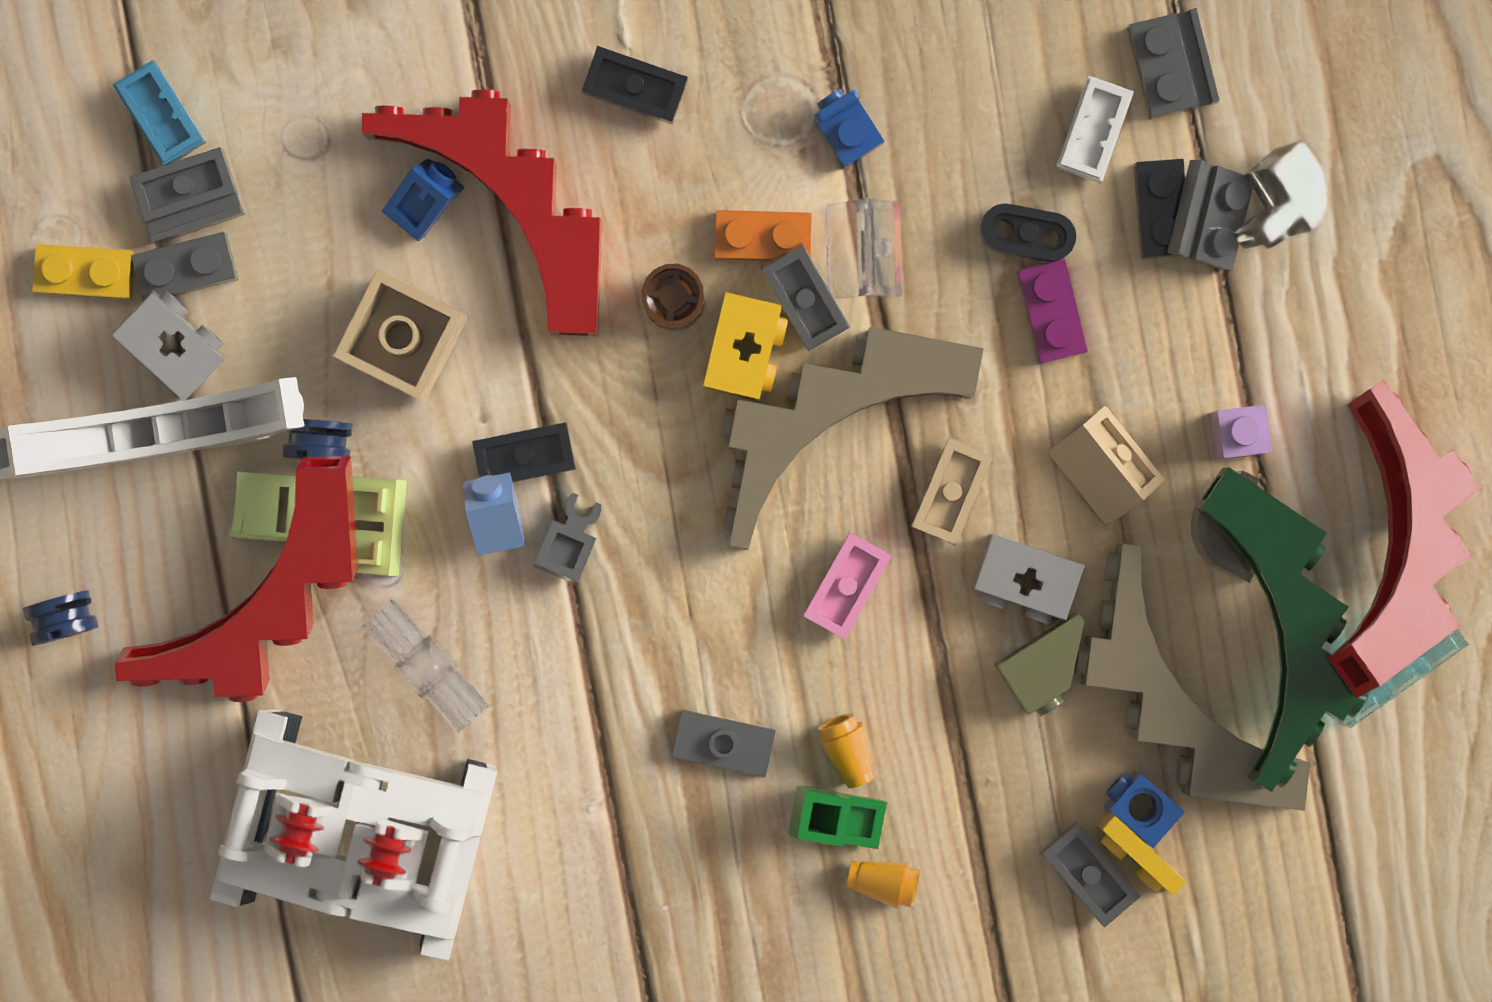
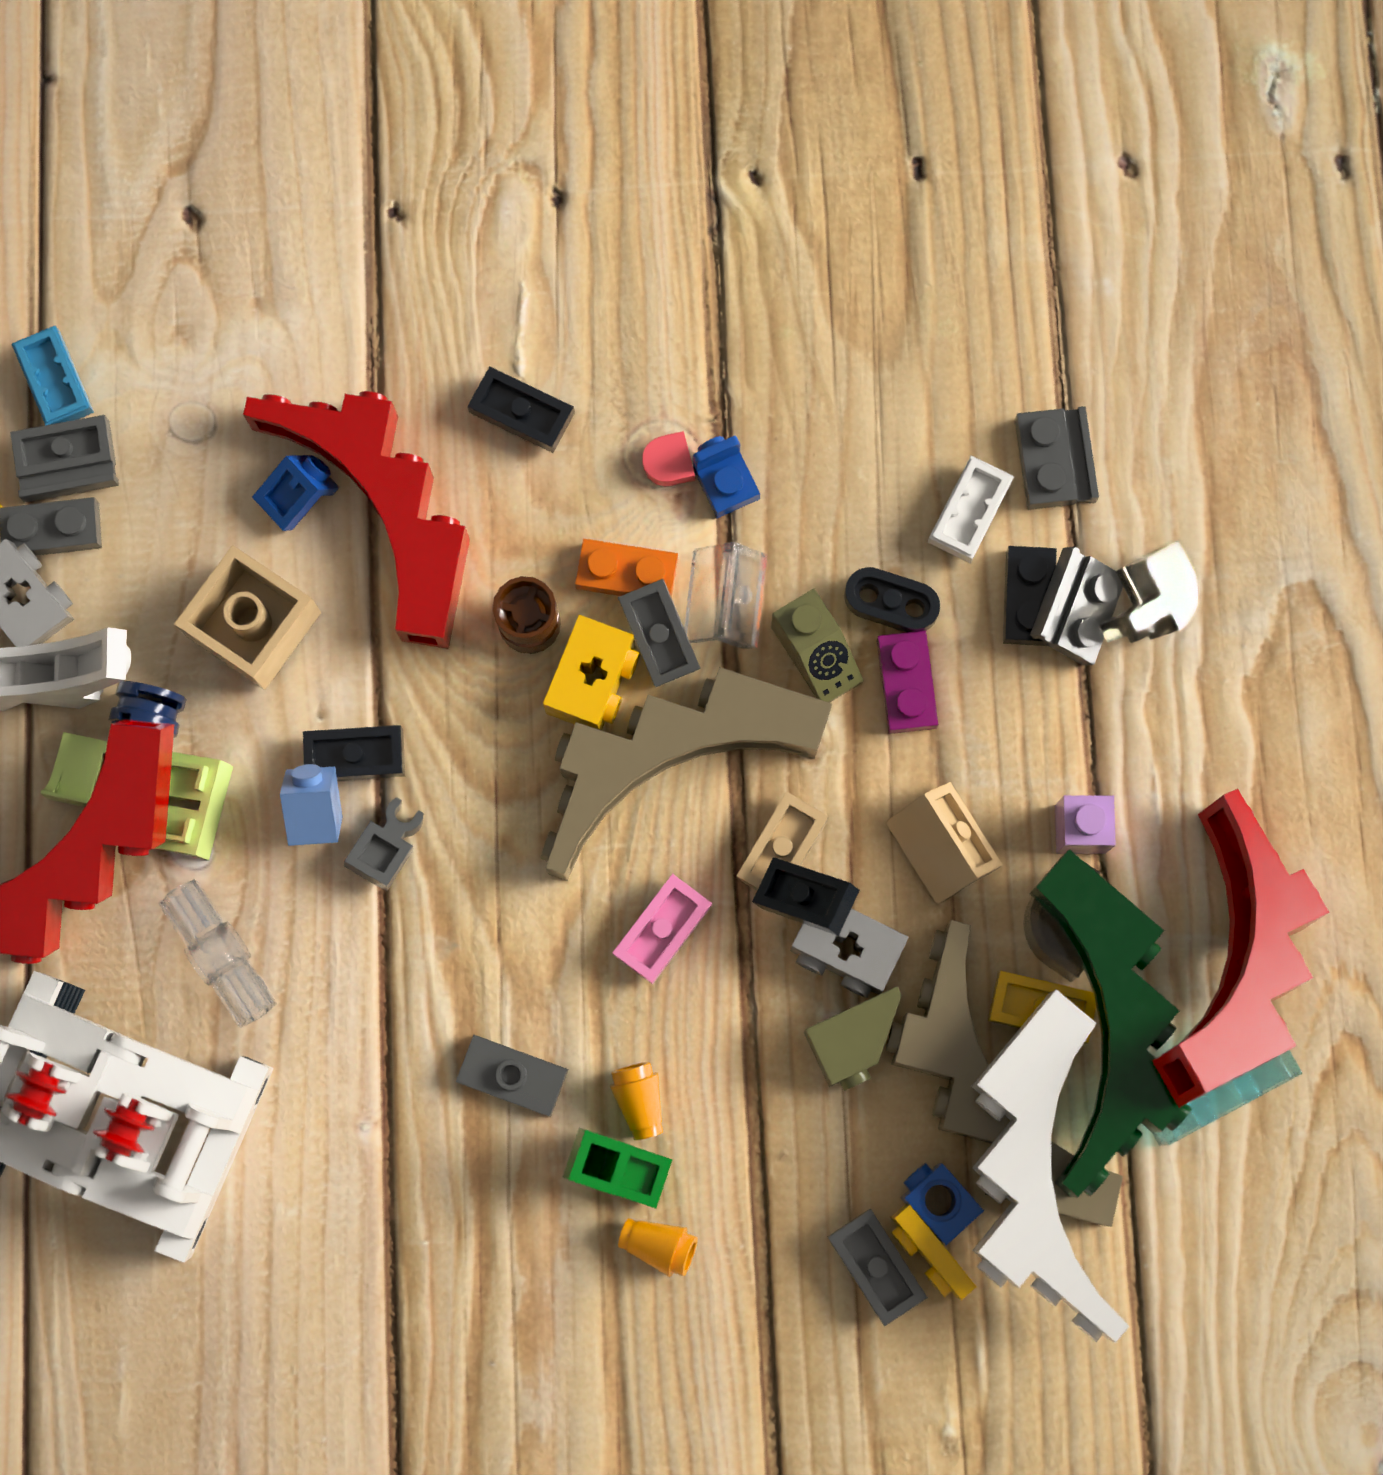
camera: 15 degrees right, 10 degrees down
(788, 117) = (668, 460): none -> coral tile
(961, 291) = (816, 646): none -> olive slope
(982, 541) = (806, 896): none -> black plate
(1218, 612) = (1018, 997): none -> yellow plate
(1228, 832) = (1017, 1166): none -> white arch

